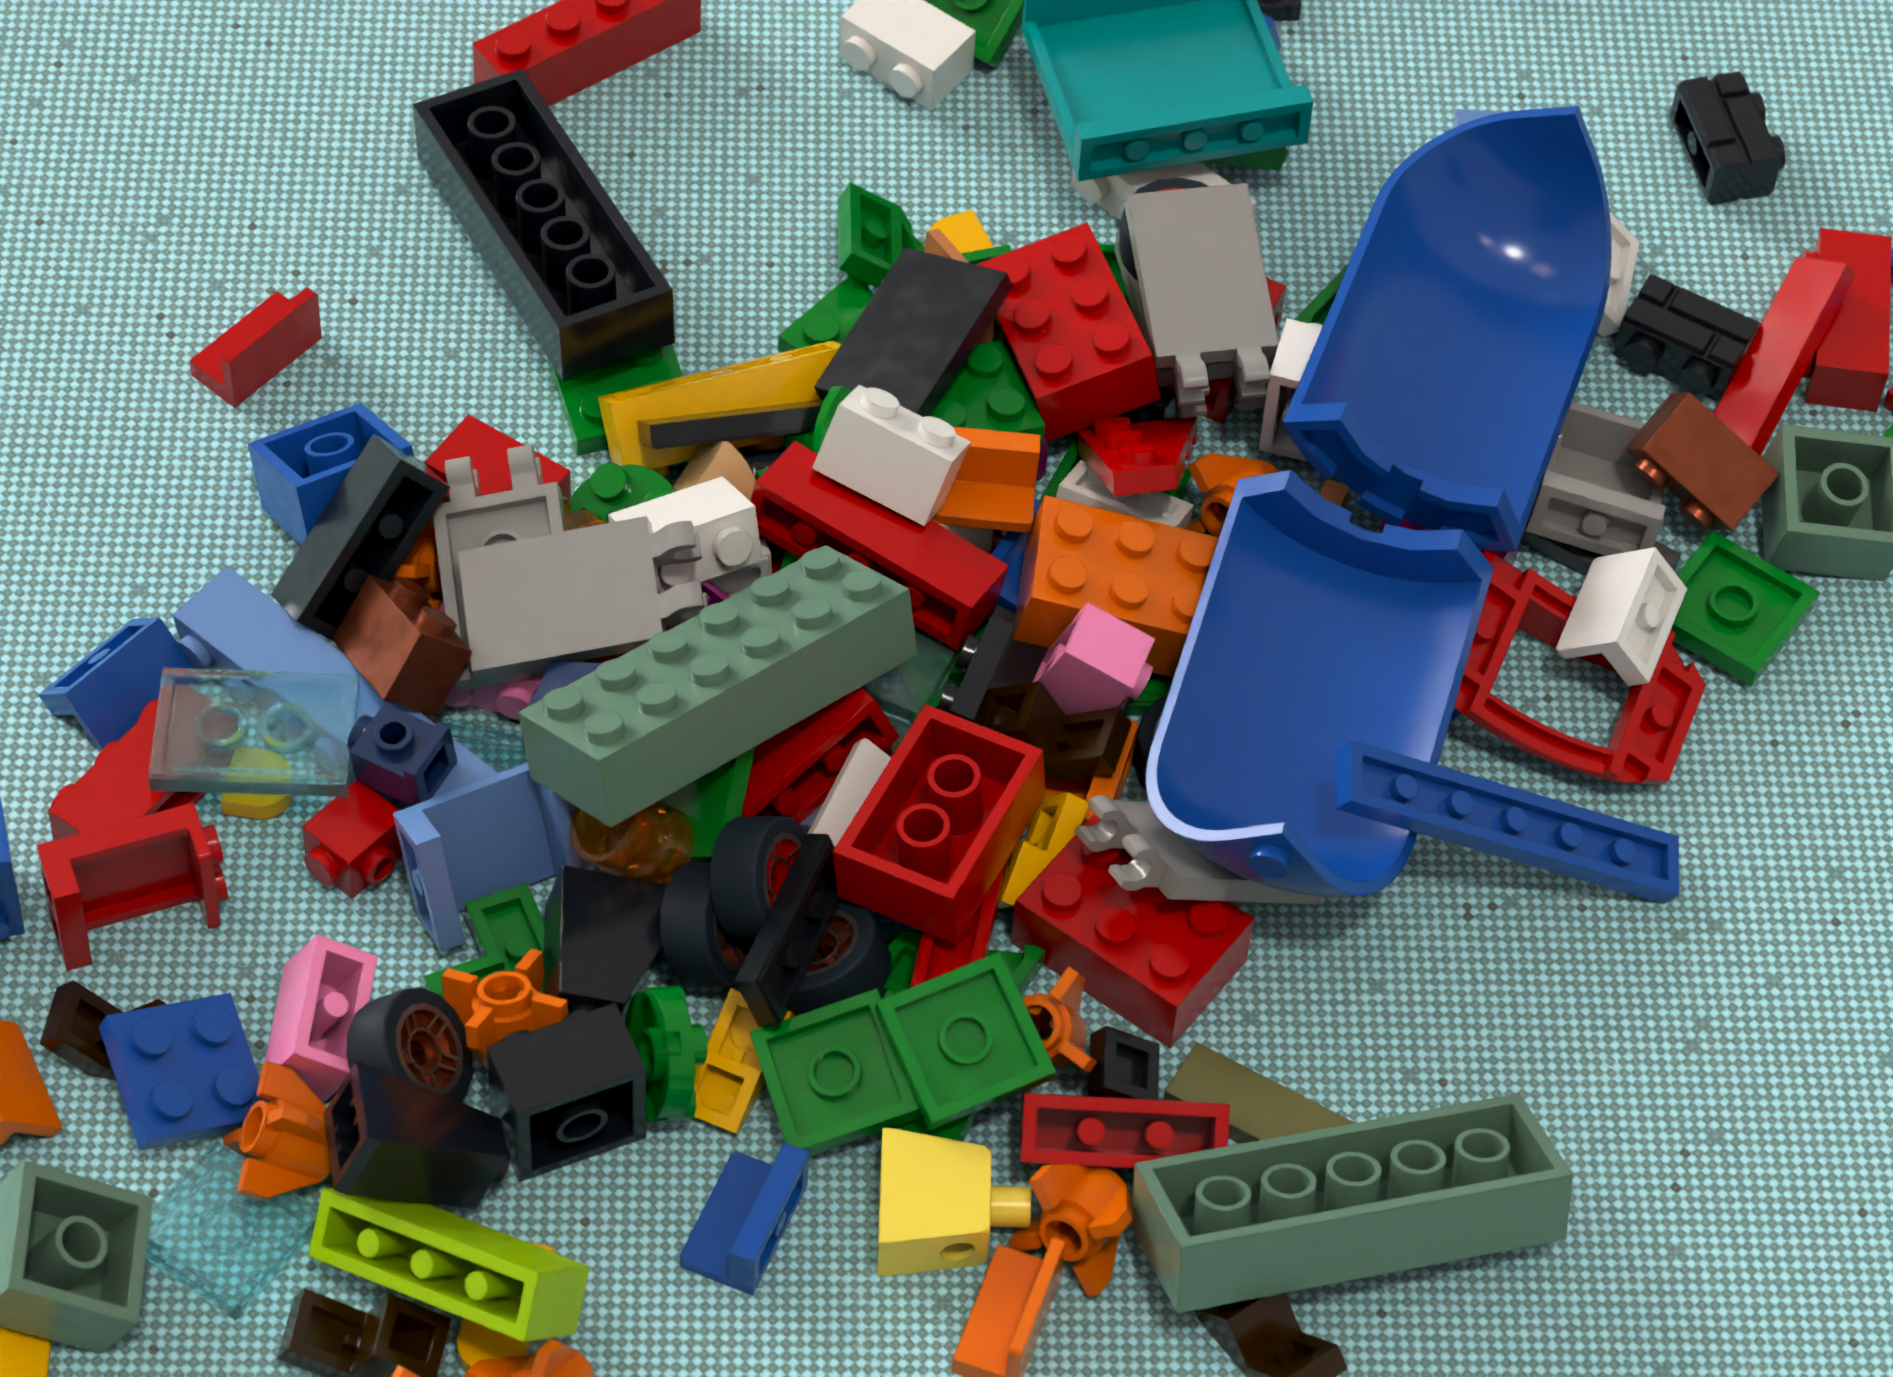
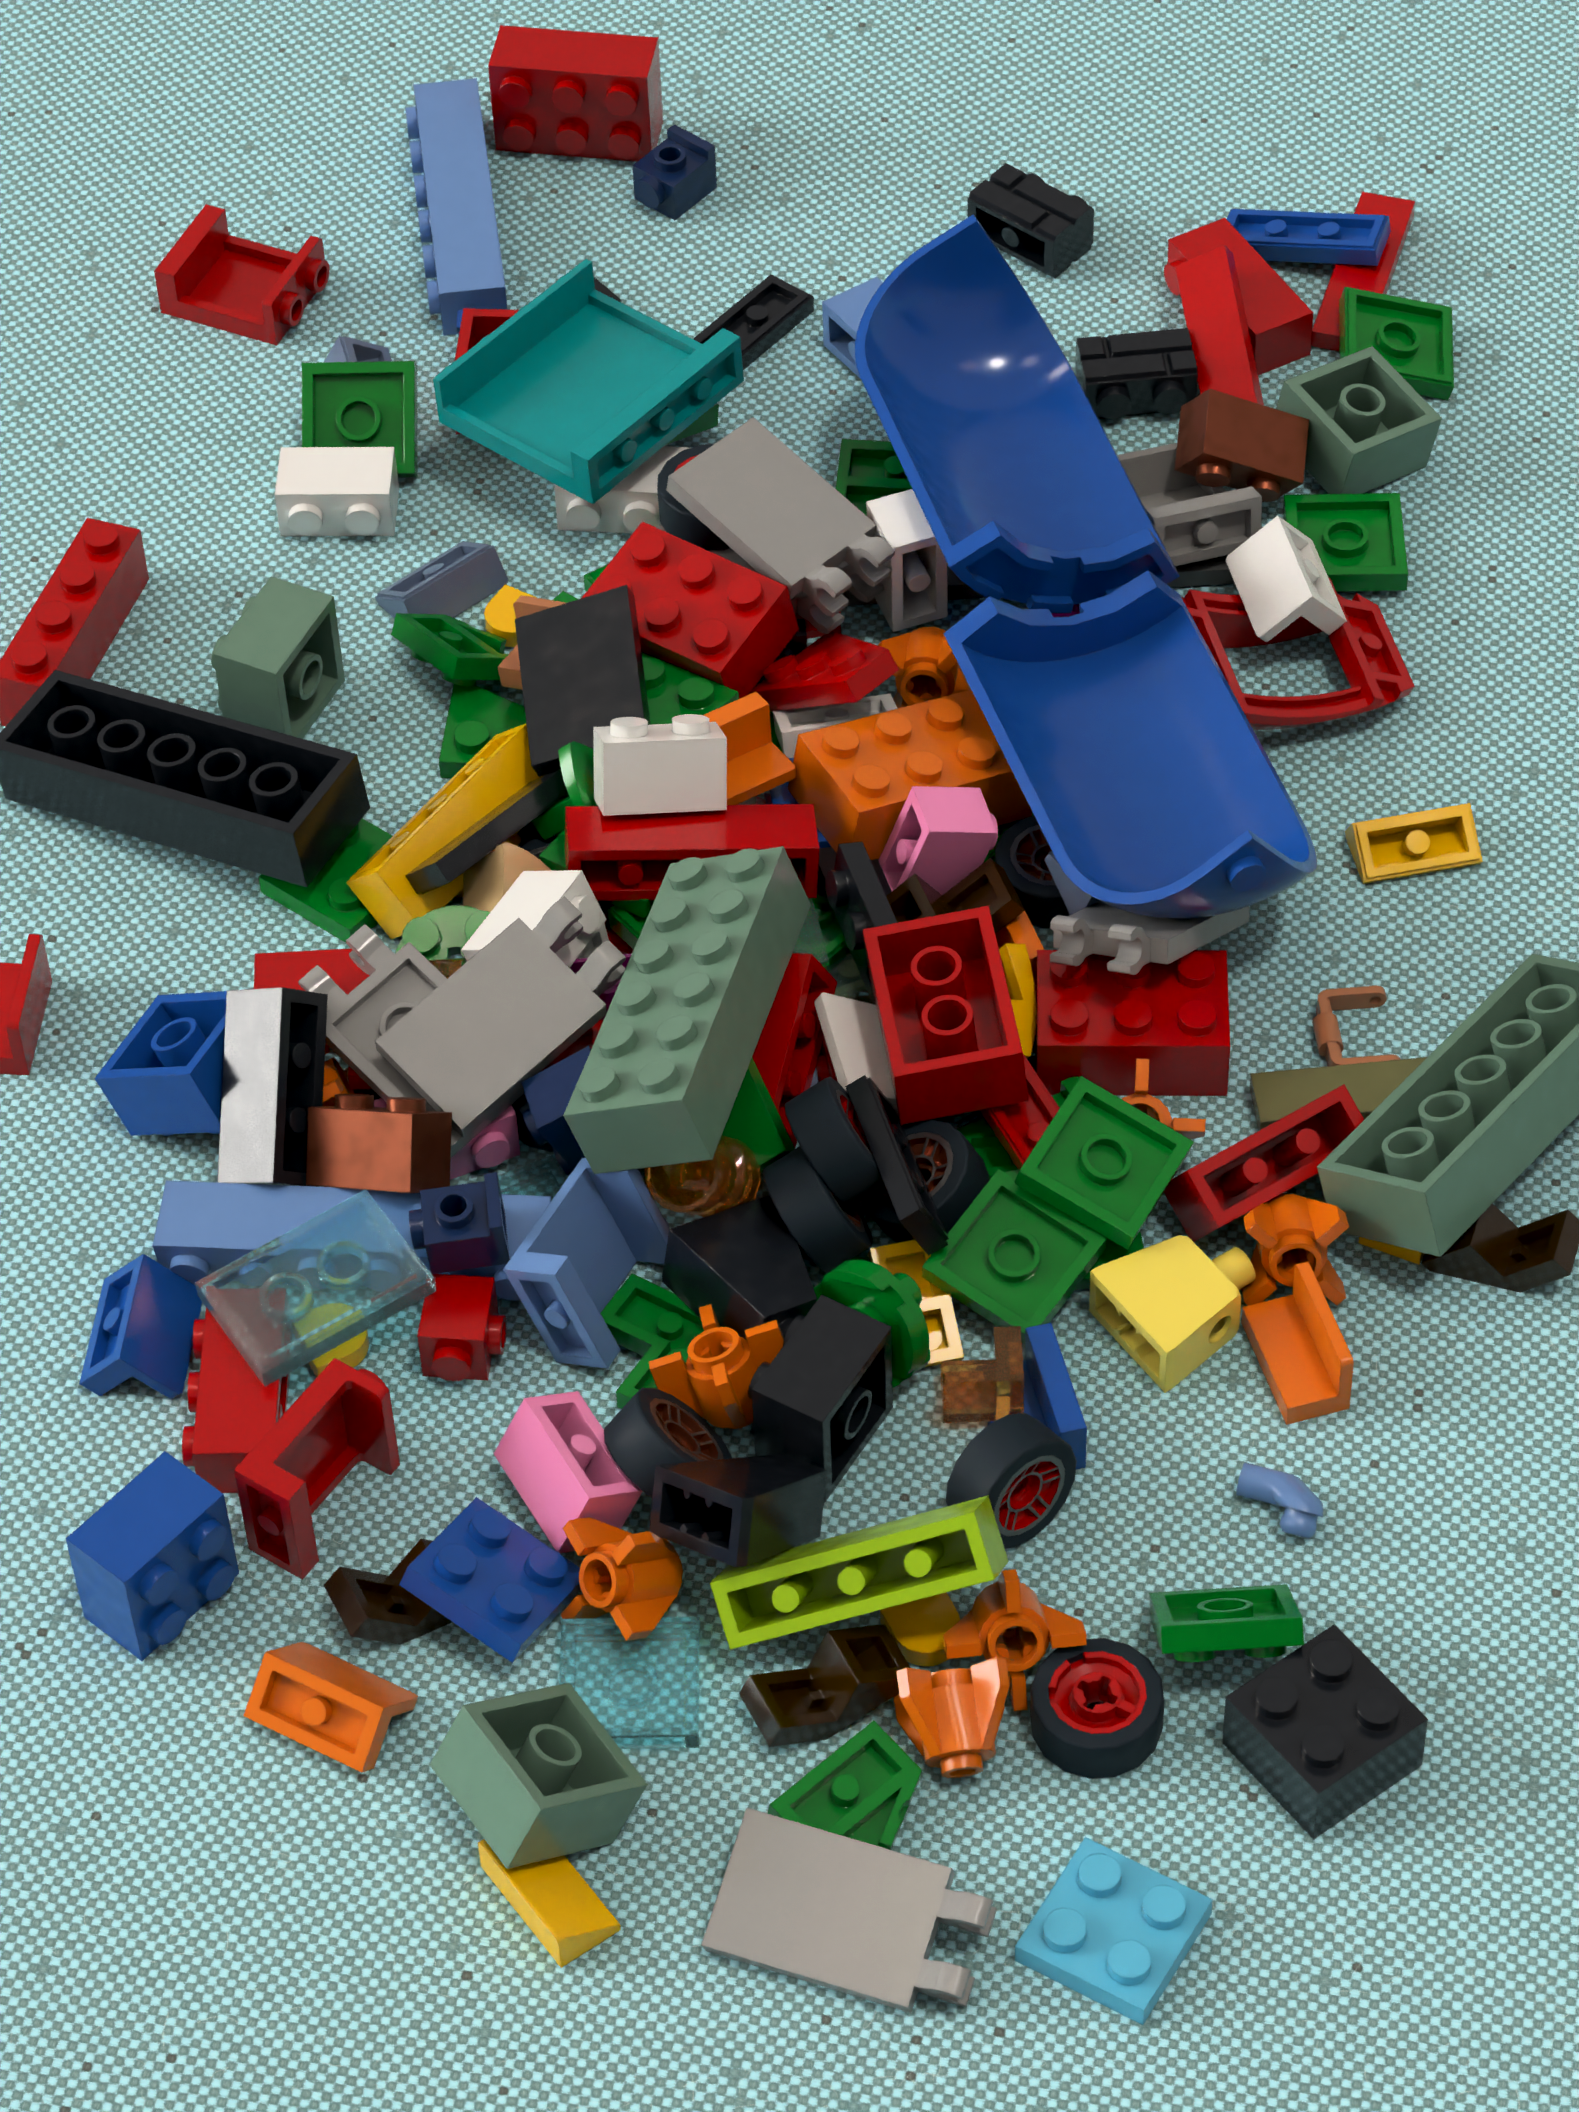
camera: 30 degrees left, 5 degrees down
(654, 1266) = (1021, 1470): none -> black wheel
(709, 173) = (280, 659): none -> sand green brick
(720, 1169) = (985, 1387): none -> clear orange panel
(929, 180) = (447, 582): none -> sand blue slope
(1124, 1065) = (1224, 1120): black plate -> none
(1309, 1039) = (1327, 1027): none -> nougat piece
(1386, 97) = (762, 317): none -> black tile
(1506, 822) = (1350, 768): blue plate -> none
(1538, 926) = (1414, 843): none -> yellow slope

